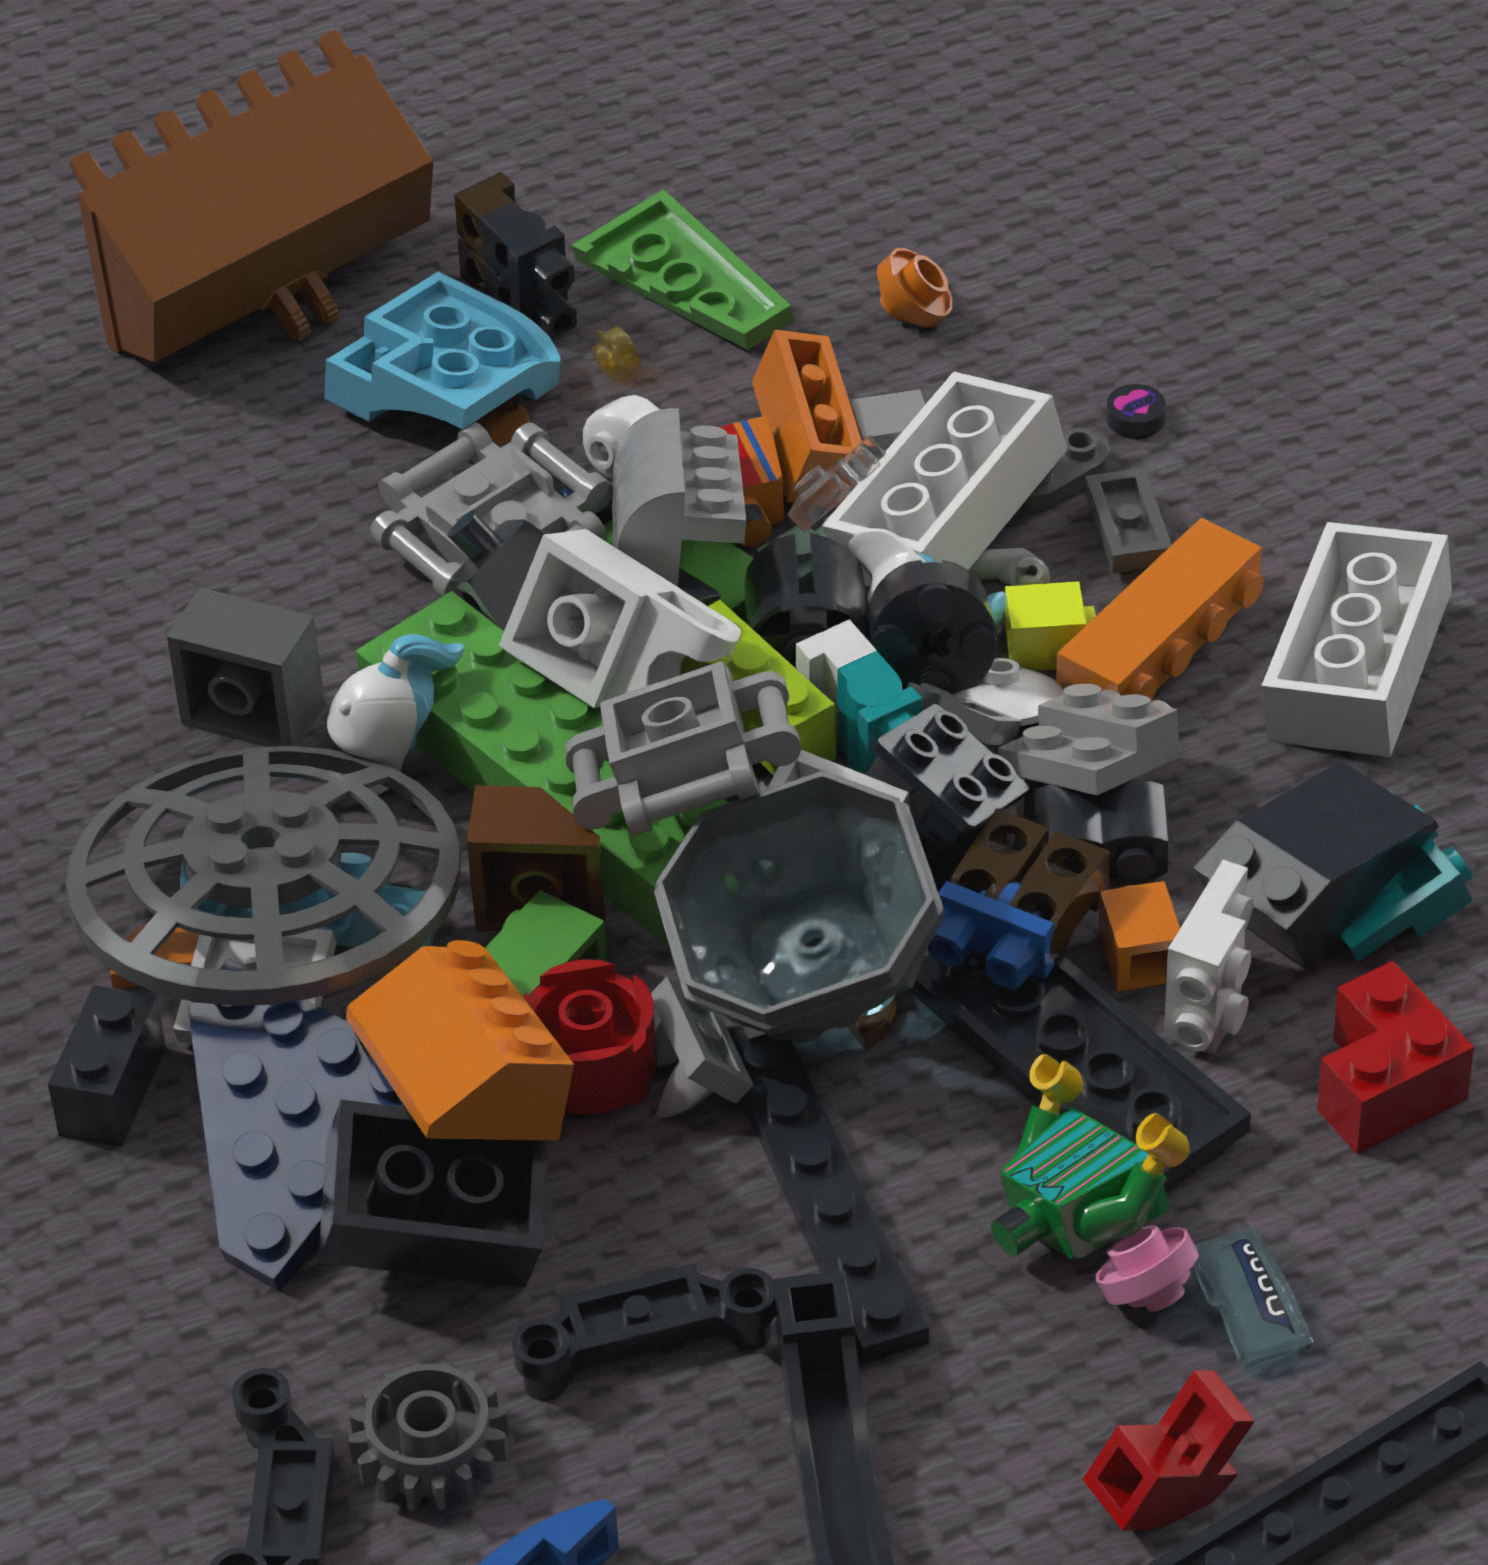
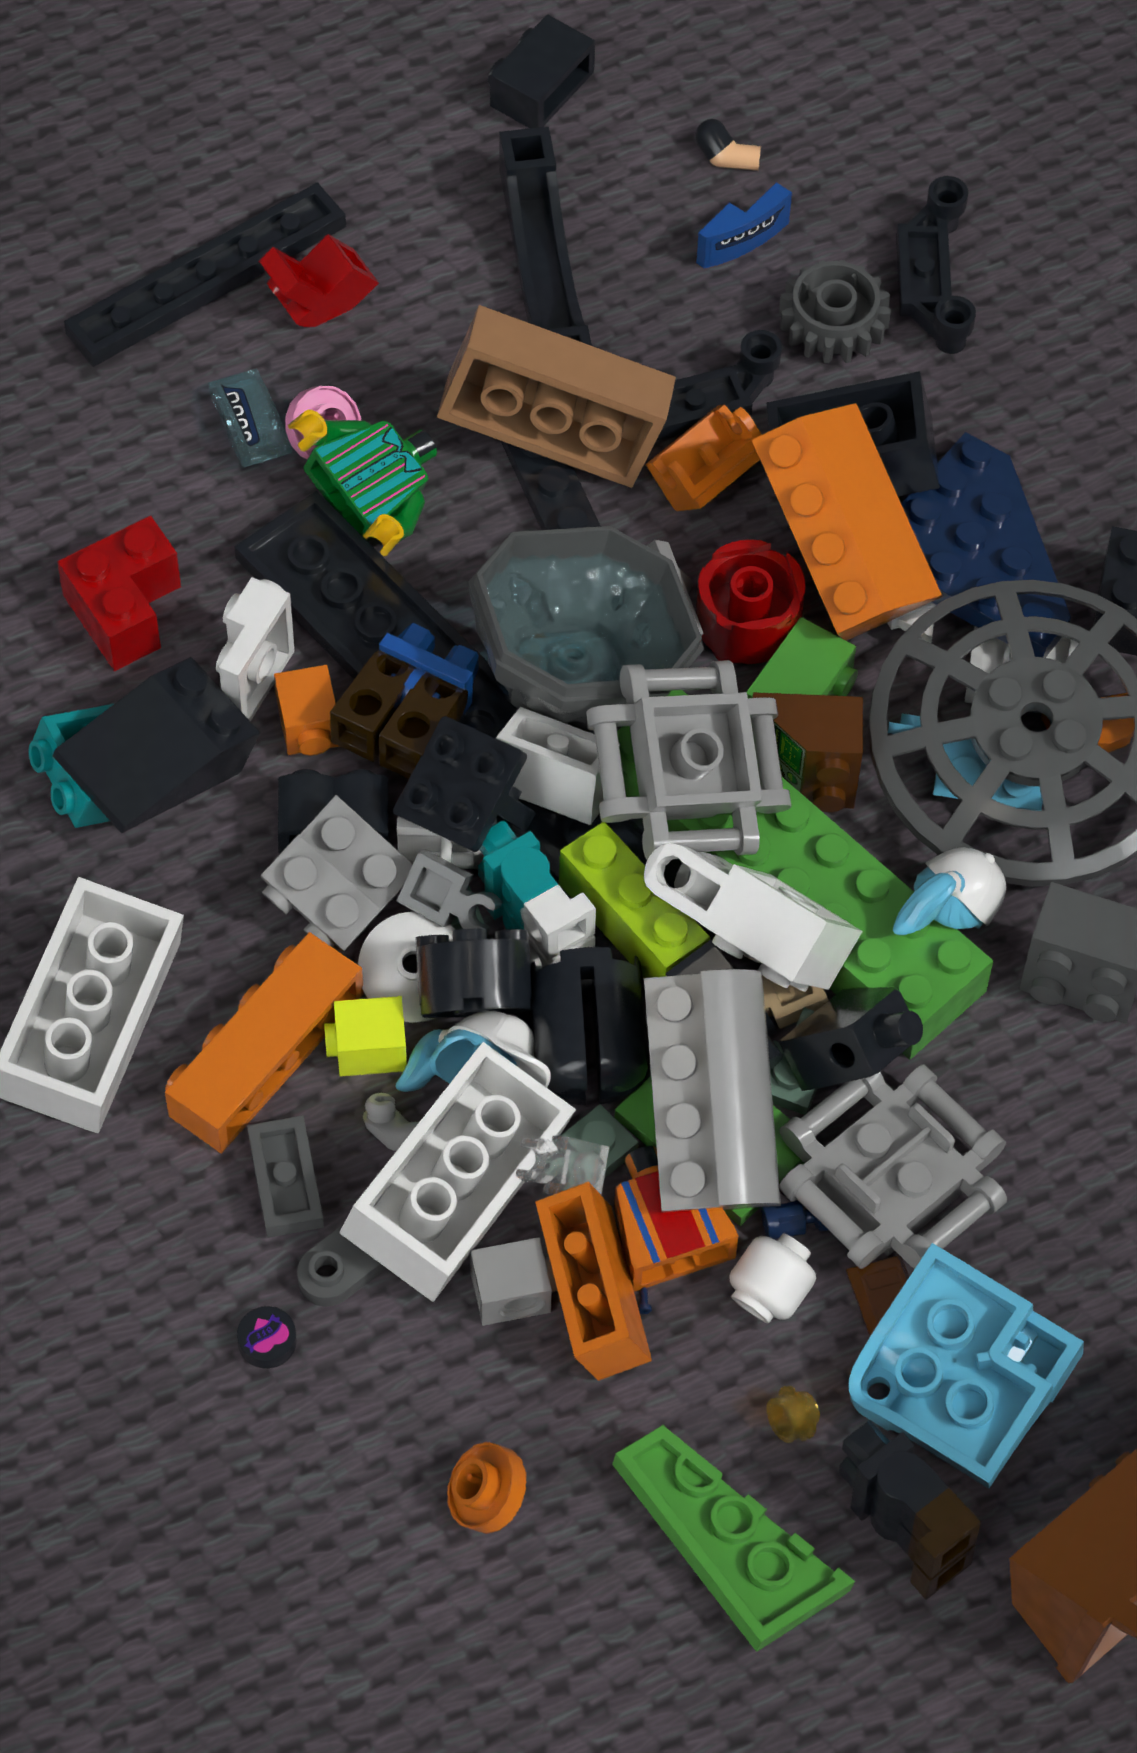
camera: 175 degrees right, 15 degrees up
(622, 1219) = (706, 458): none -> orange hinge
(877, 1211) = (556, 396): none -> medium nougat brick

